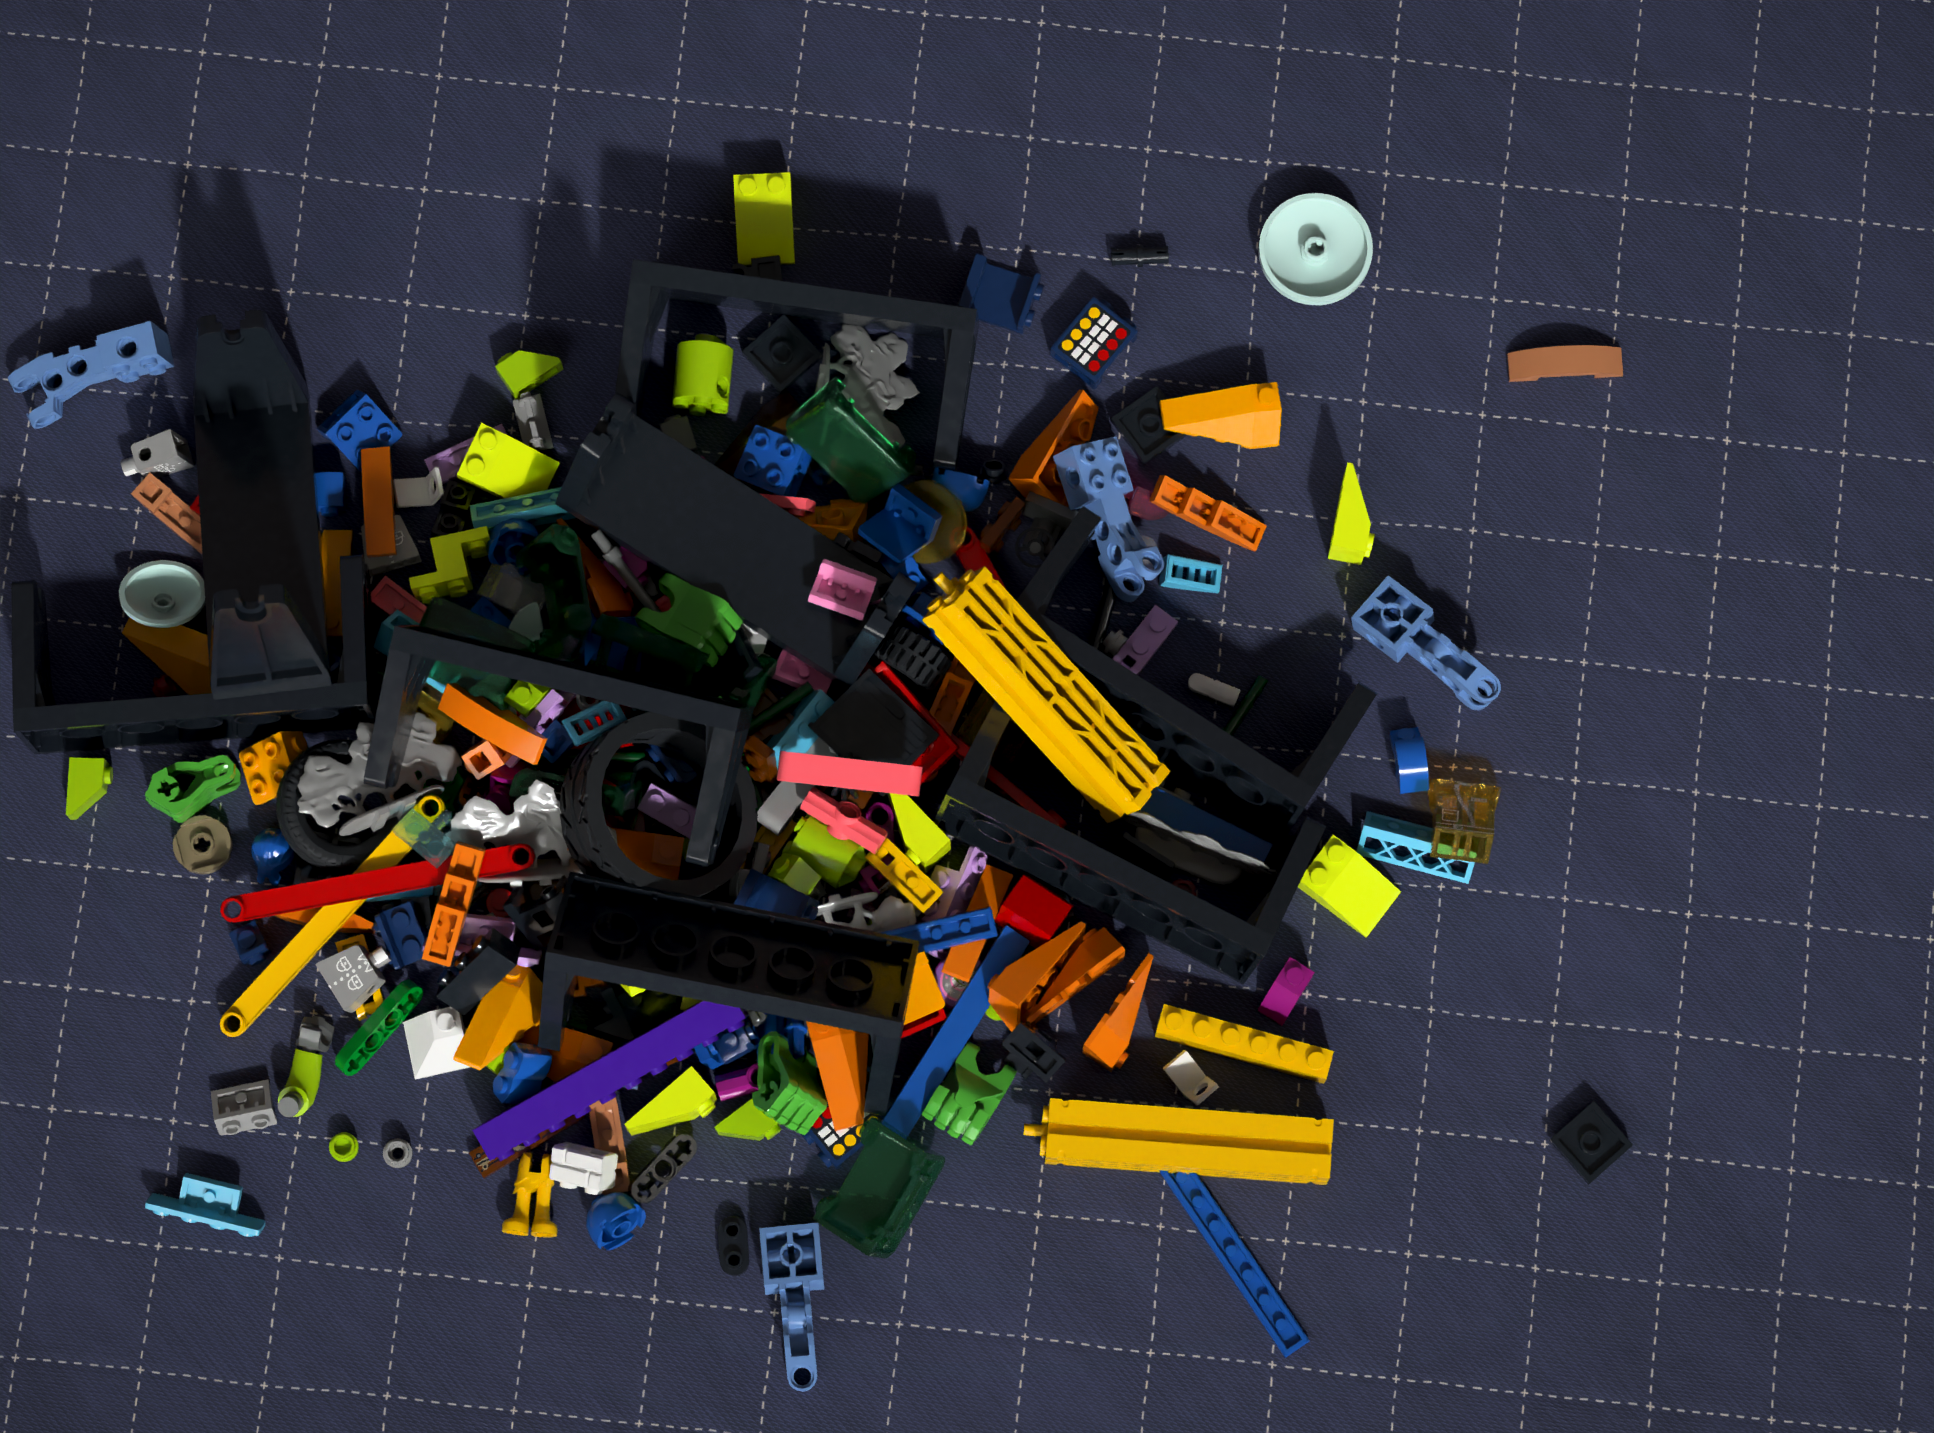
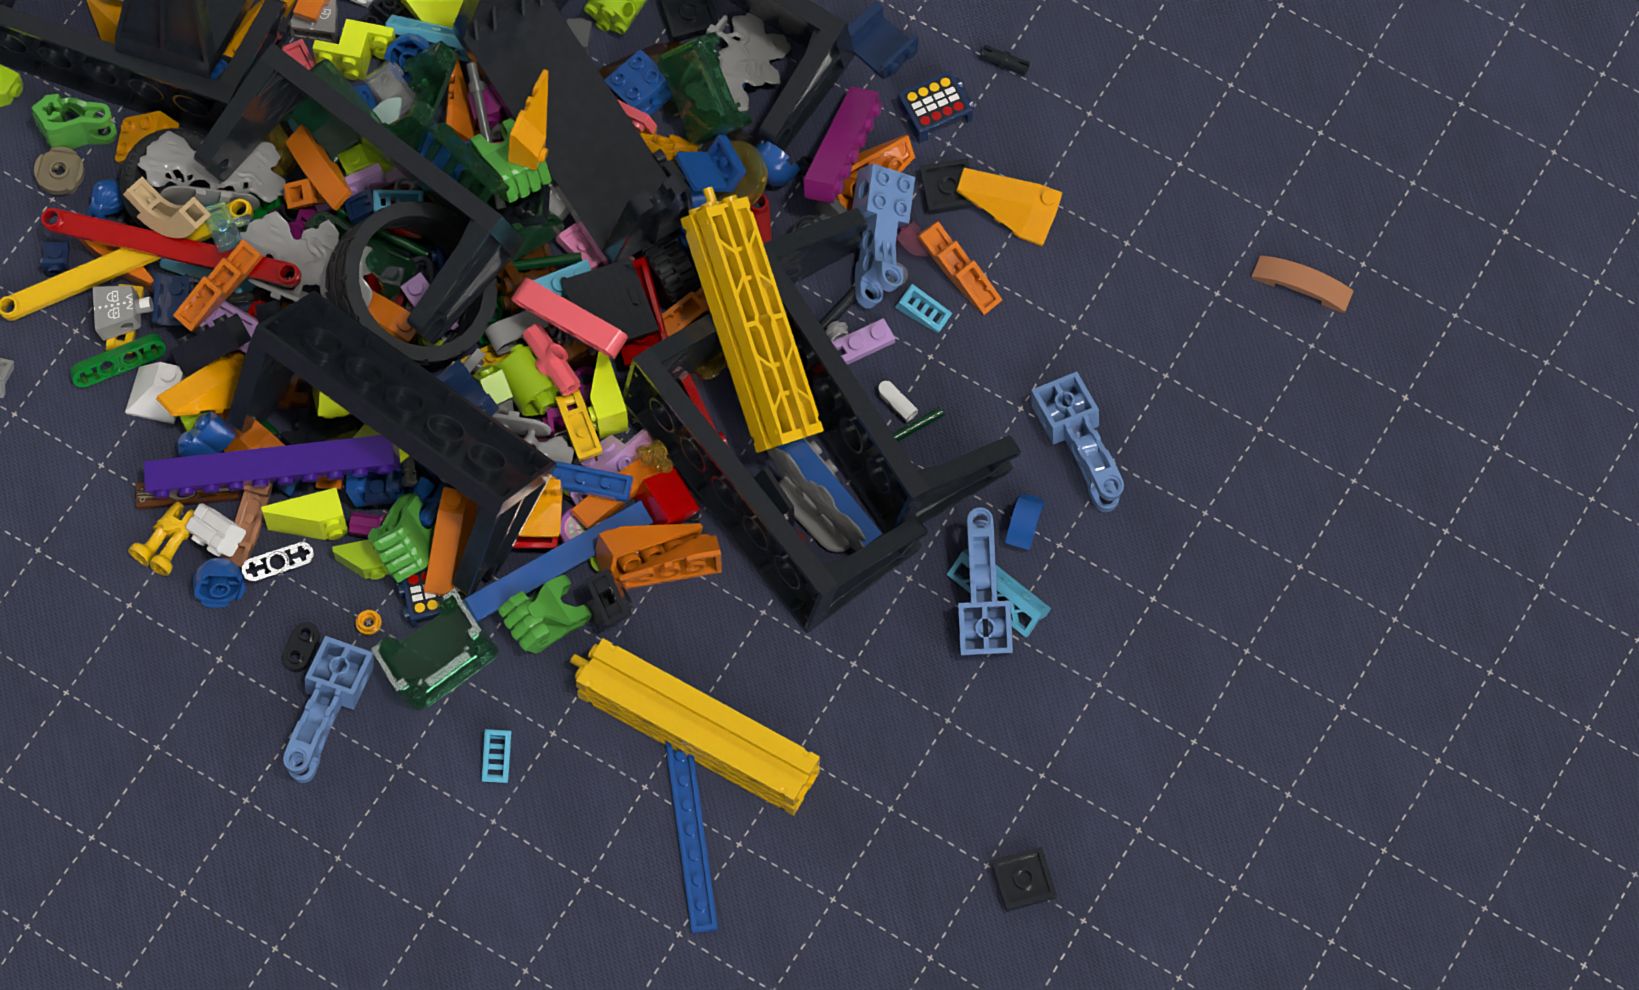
camera: 25 degrees right, 10 degrees down
(305, 1073) = (45, 368): piece -> none
(343, 1147) = (43, 437): lime plate -> none
(357, 854) = (163, 216): none -> tan arch
(389, 1149) = (80, 453): light grey plate -> none
(706, 586) = (529, 131): none -> light orange wedge
(789, 1178) = (365, 616): none -> light orange plate
(842, 589) = (634, 181): bright pink bracket -> none
(985, 1270) = (496, 734): none -> medium azure slope
(999, 871) = (654, 456): none -> clear yellow plate
(1008, 518) = (782, 207): reddish brown plate -> none
(1025, 437) = (842, 145): none -> magenta brick
(1113, 1032) = (681, 618): orange wedge -> none
(1189, 1078) = (725, 680): white bracket -> none
(1244, 1043) = (782, 675): yellow brick -> none
(1286, 991) = (837, 650): magenta slope -> none
(1315, 249) = (1144, 111): light aqua dish -> none
(1348, 886) = (926, 593): neon yellow slope -> none
(1352, 524) = (1062, 328): neon yellow slope -> none
(1423, 887) = (984, 621): none -> medium blue brick
(1462, 819) = (1044, 582): clear yellow piece -> none

